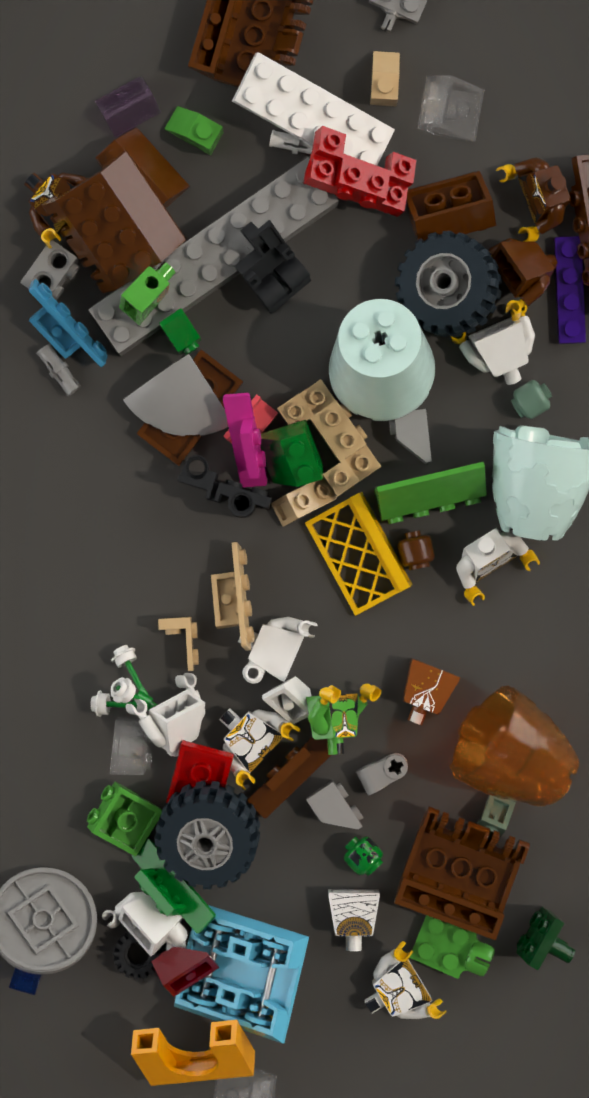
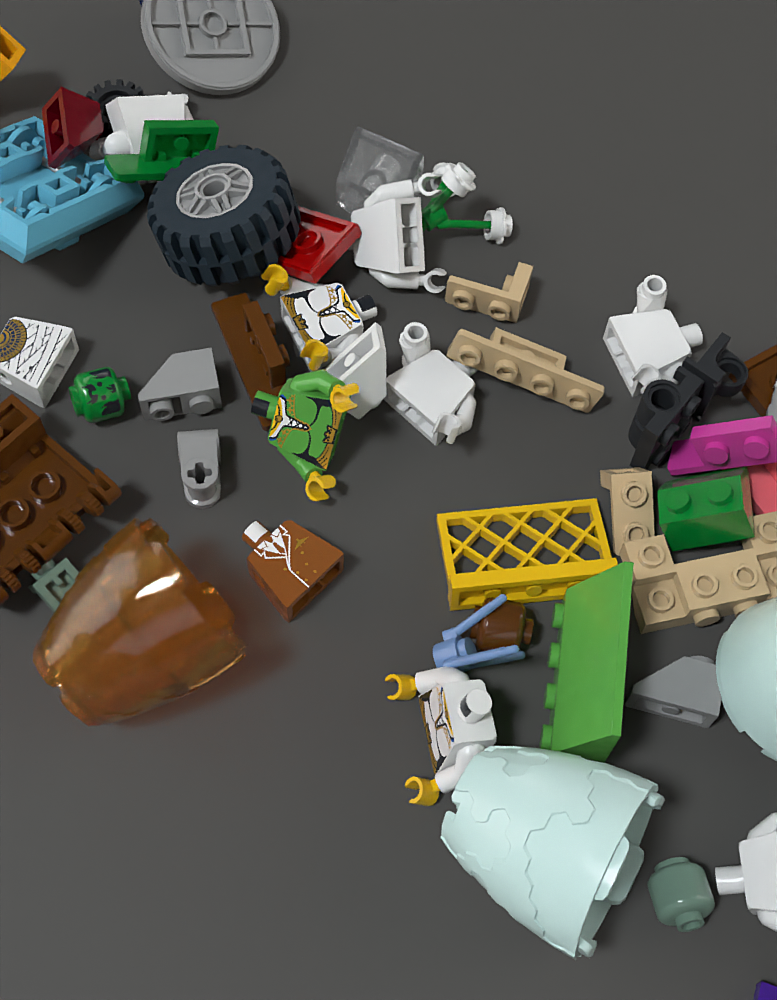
camera: 110 degrees right, 25 degrees down
(123, 818) = (298, 146): bright green plate -> none
(183, 521) = (649, 341): none -> white torso
(443, 569) = (462, 653): none -> medium blue plant

